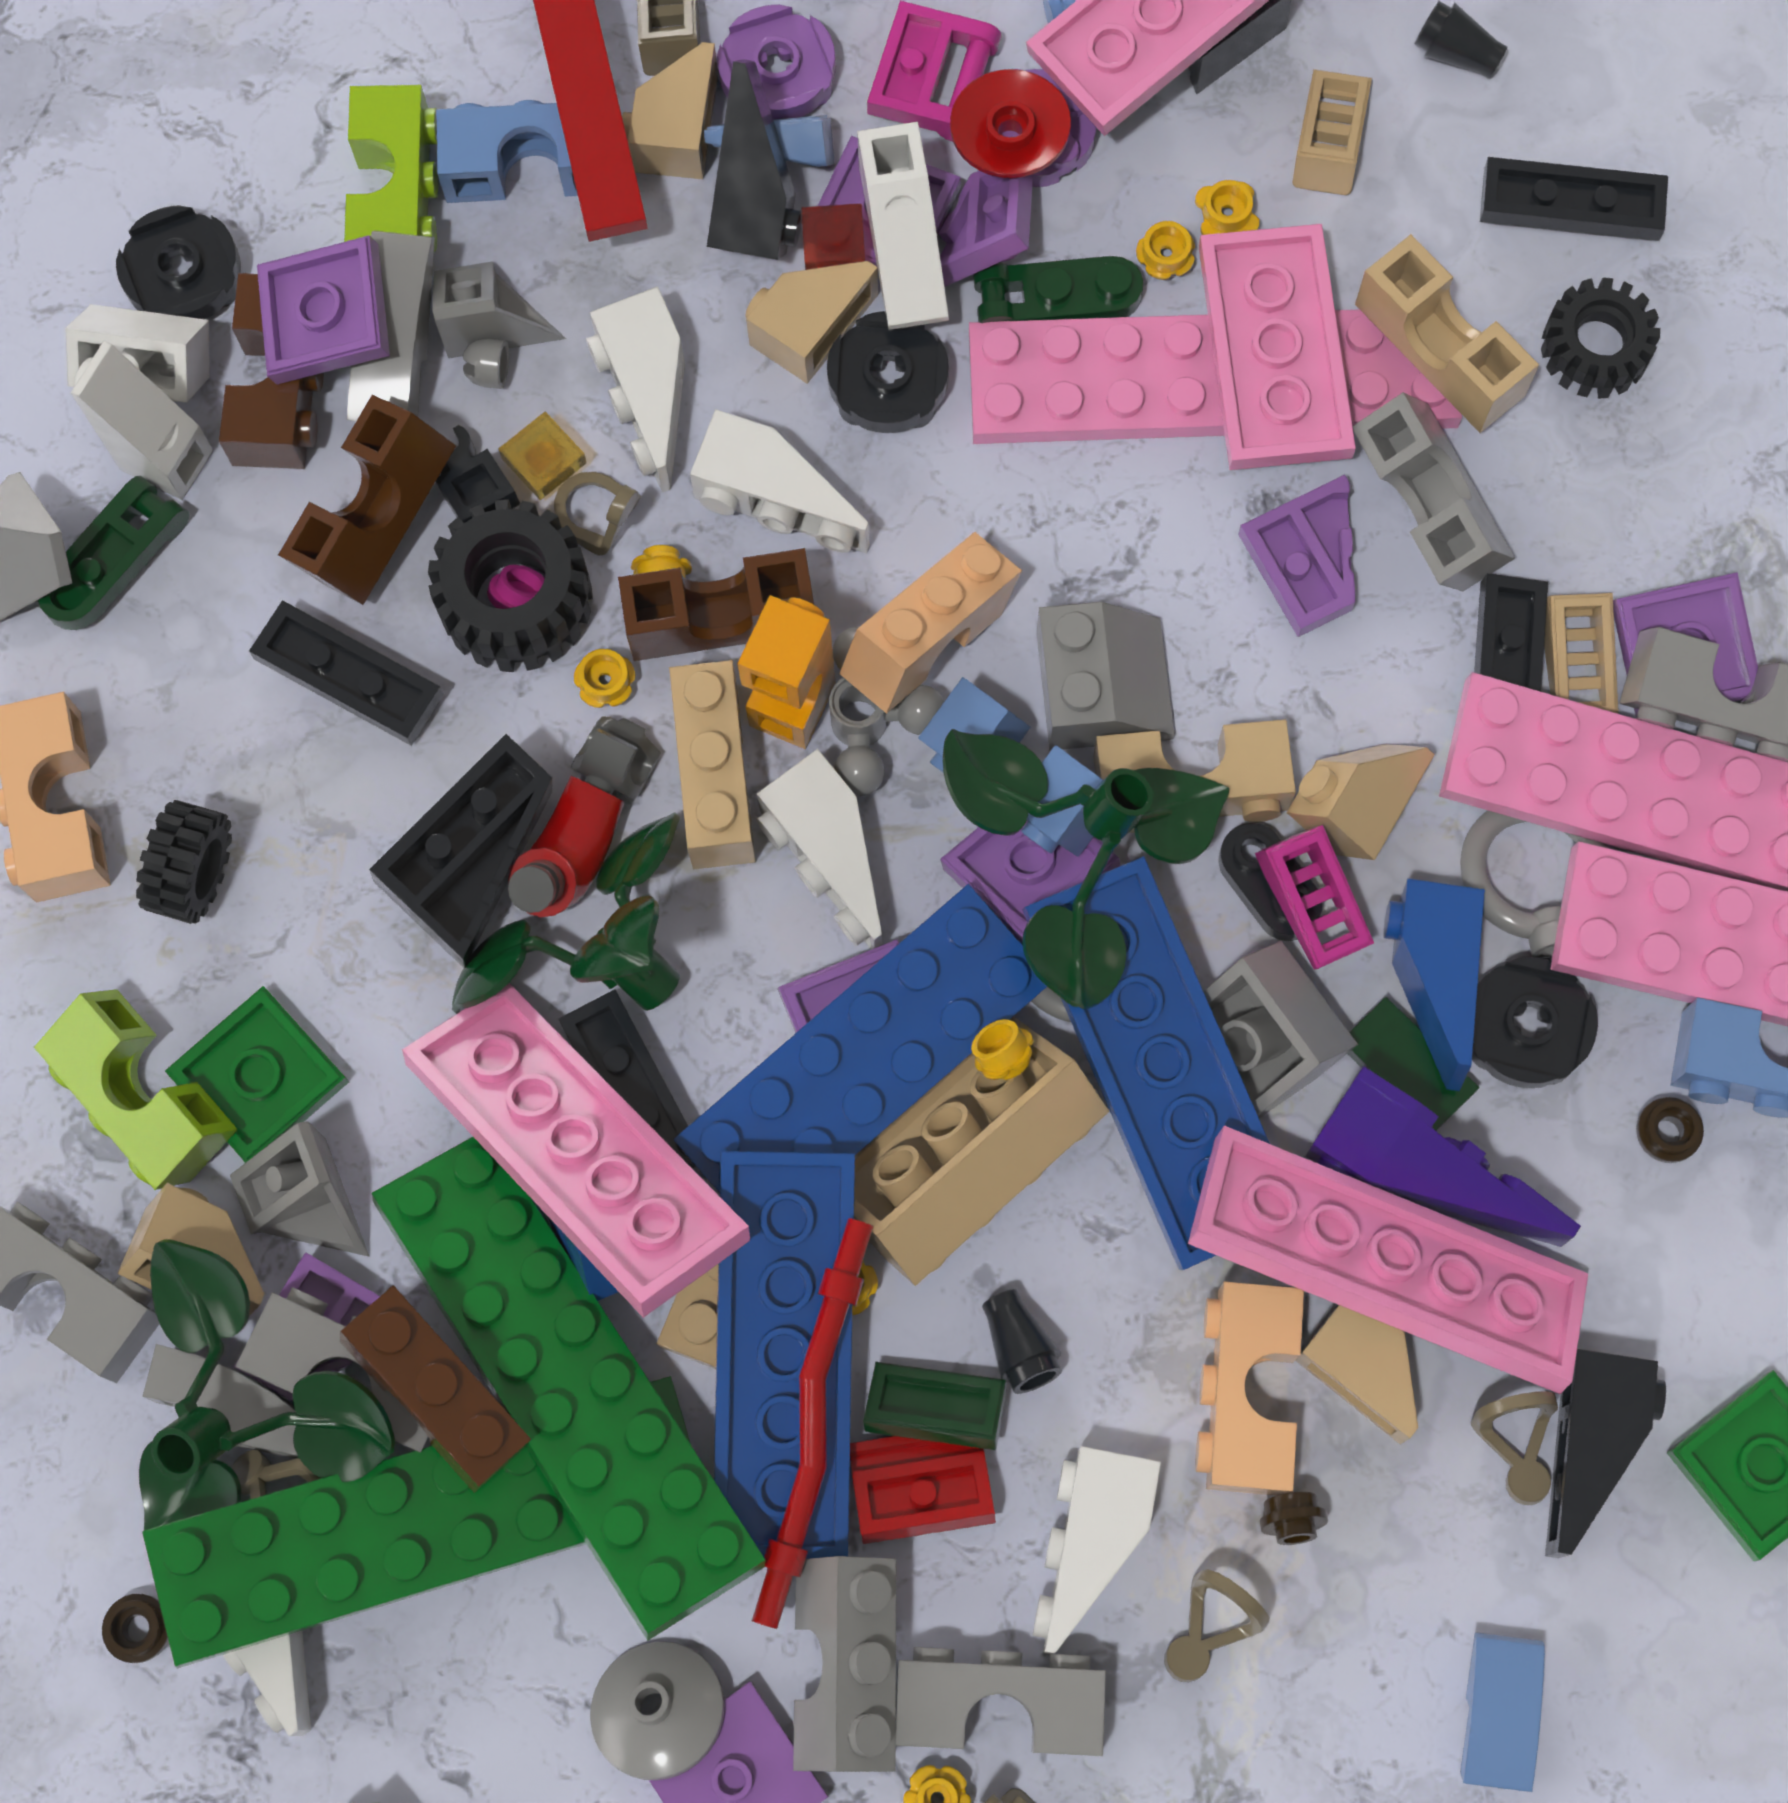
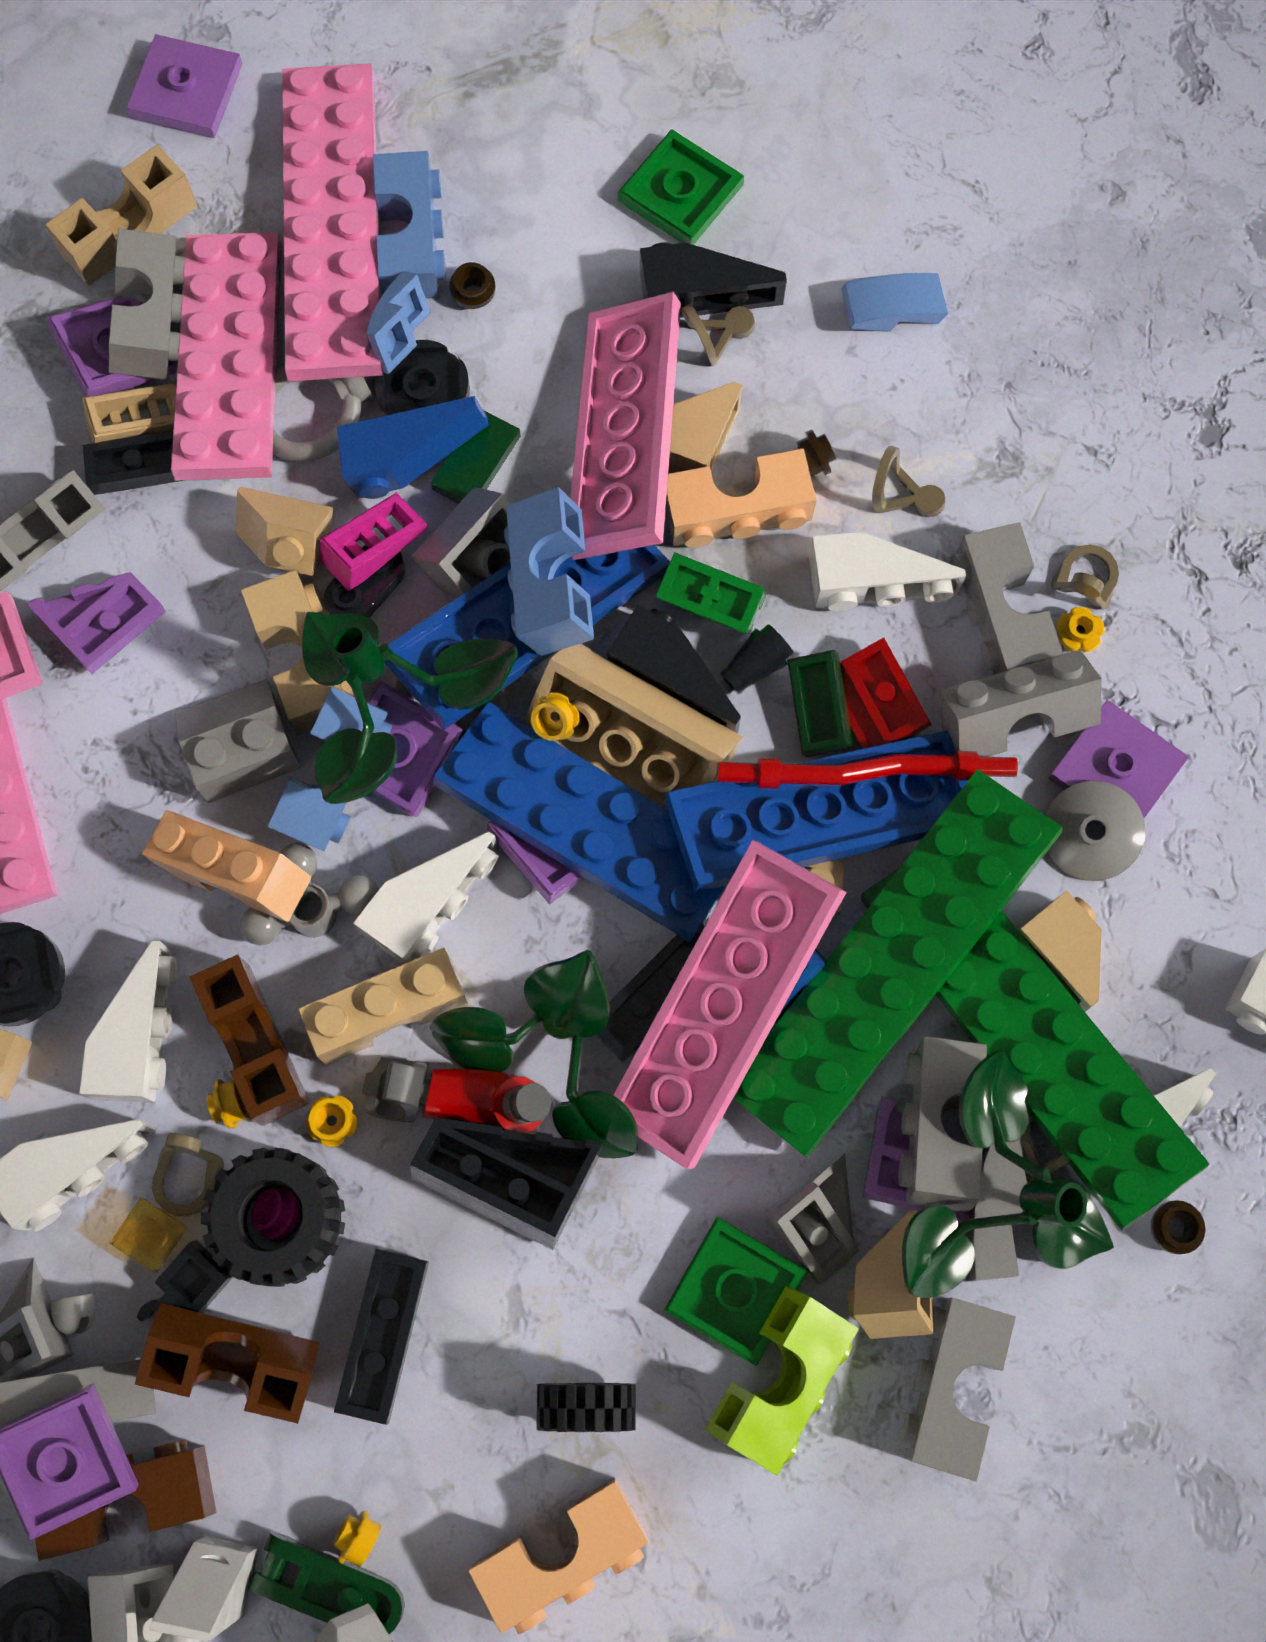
camera: 110 degrees left, 0 degrees up
(146, 594) = (356, 1538): none -> yellow plate
(434, 1387) = (945, 1037): reddish brown arch -> none
(517, 1610) = (1069, 945): none -> tan slope
(788, 669) = (297, 953): light orange arch -> none
(1042, 1225) = (664, 657): none -> black slope
(1123, 1308) = (711, 593): none -> green hinge
(1238, 1088) = (540, 537): none -> medium blue arch
(1392, 1145) = (541, 437): dark purple wedge -> none
(1639, 1013) = (395, 319): none -> medium blue slope

